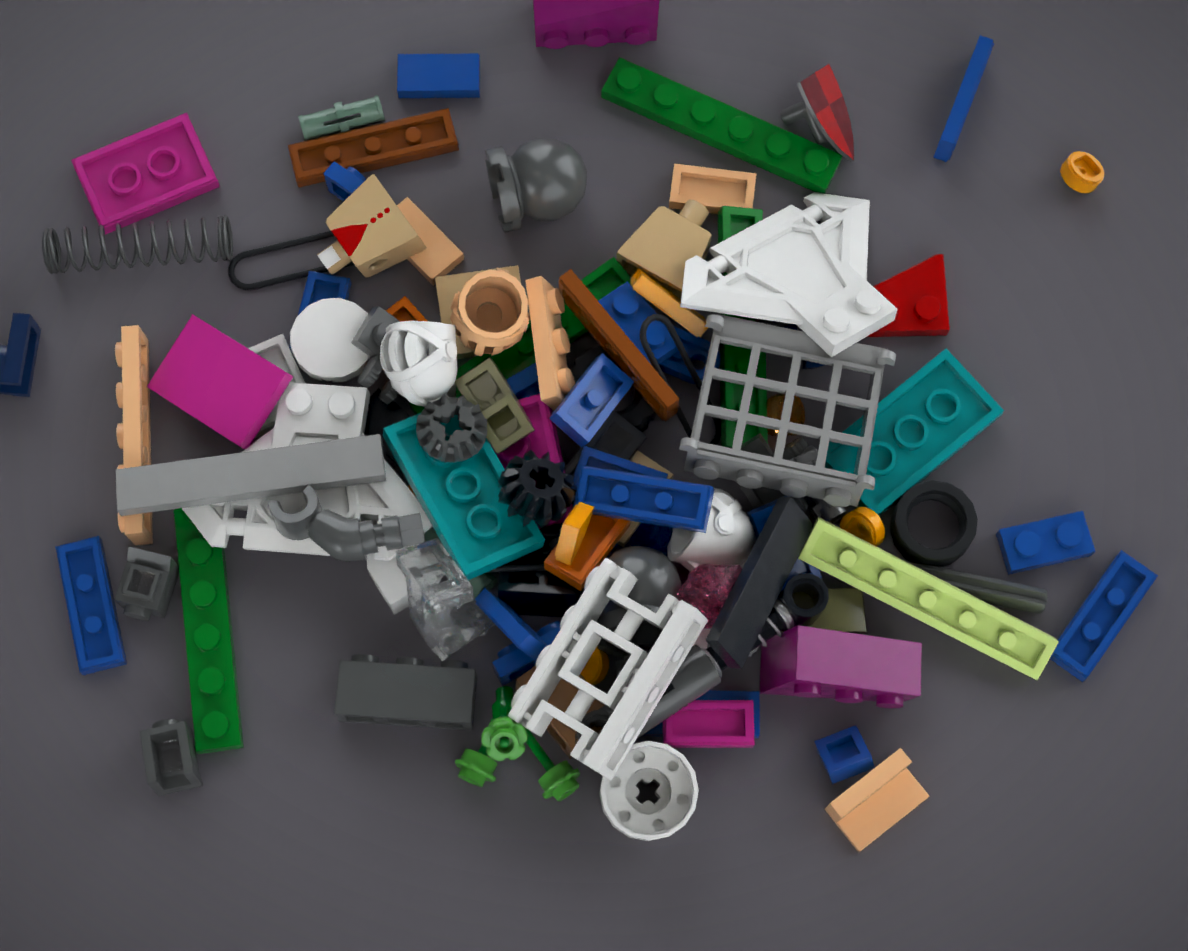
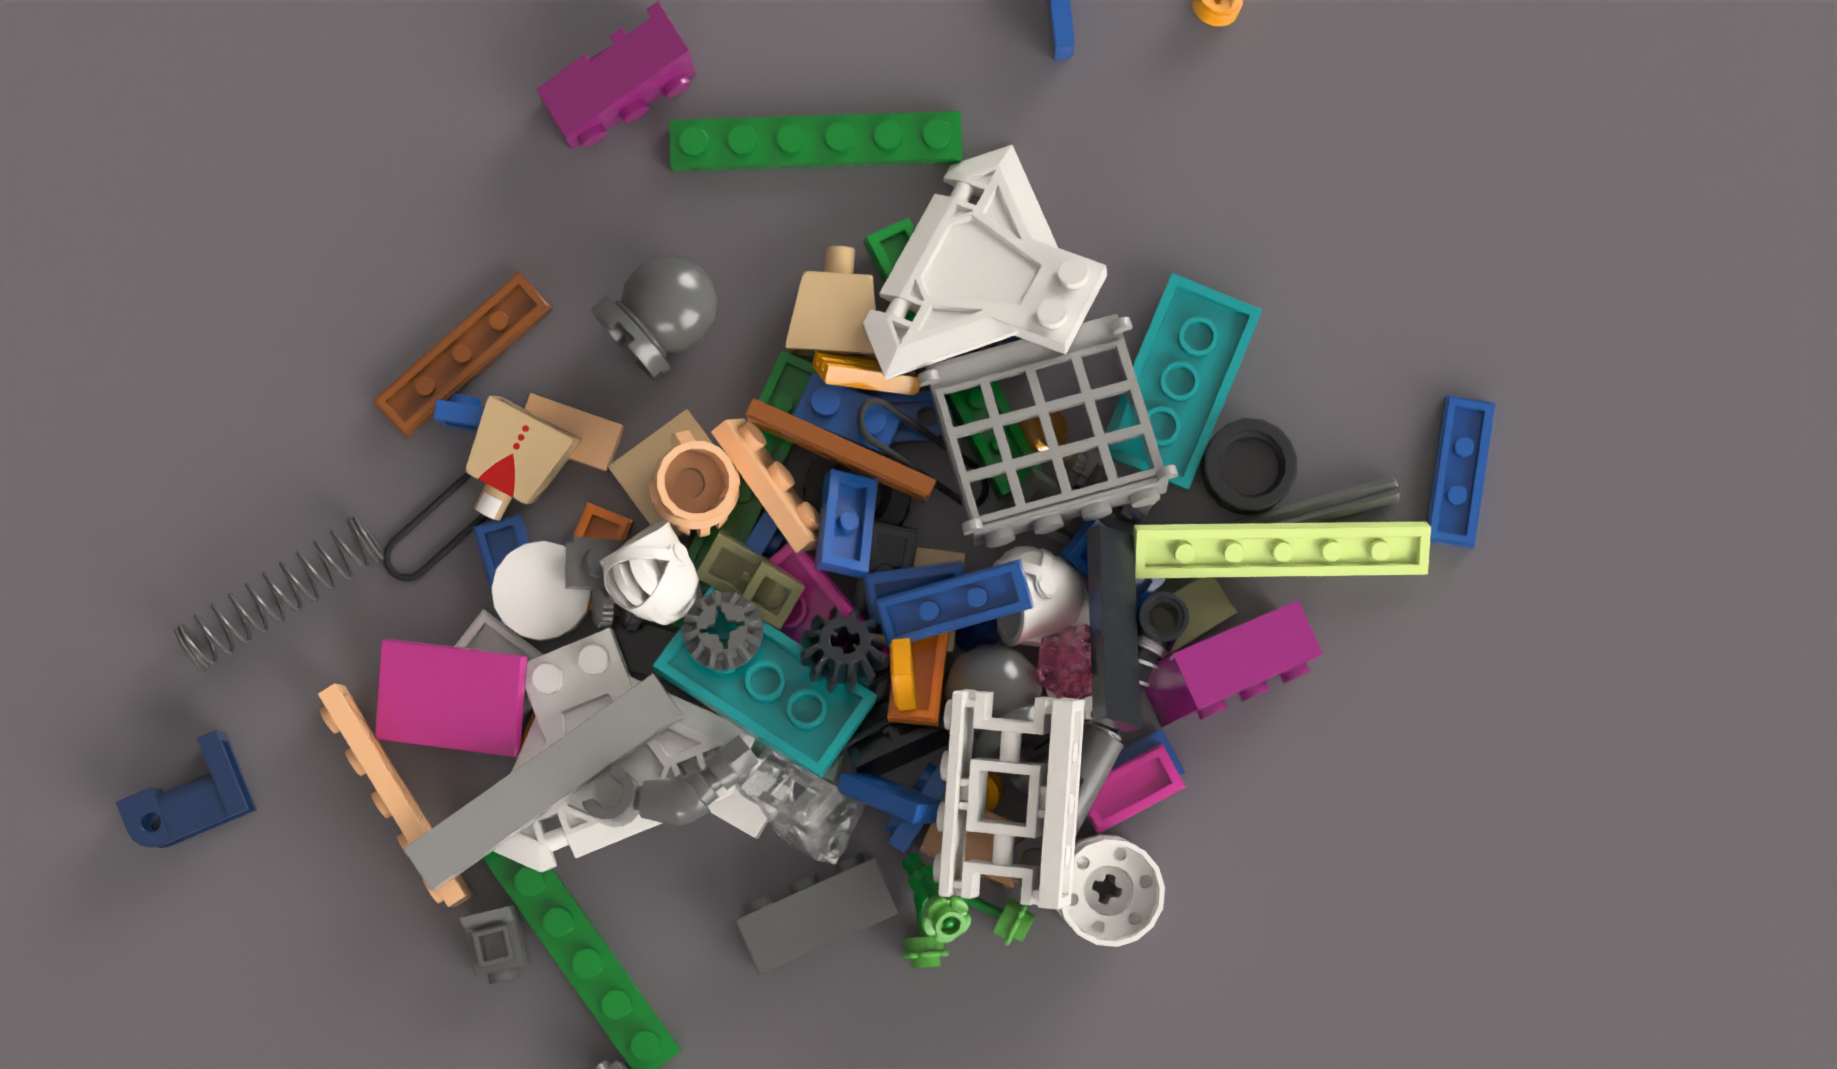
camera: 25 degrees left, 10 degrees up
(91, 605) = (449, 991): blue tile -> none
(145, 173) = (237, 508): dark pink tile -> none
(314, 126) = (411, 340): sand green pin -> none
(438, 75) = (487, 238): blue tile -> none
(711, 187) = (843, 218): light nougat tile -> none
(823, 111) = (918, 71): shield -> none
(844, 754) = (1276, 748): blue plate -> none
(864, 524) = (1181, 506): light orange tile -> none
(877, 801) = (1330, 776): light nougat panel -> none
(920, 300) = (1114, 230): red wing -> none
(1045, 542) = (1368, 425): blue plate -> none

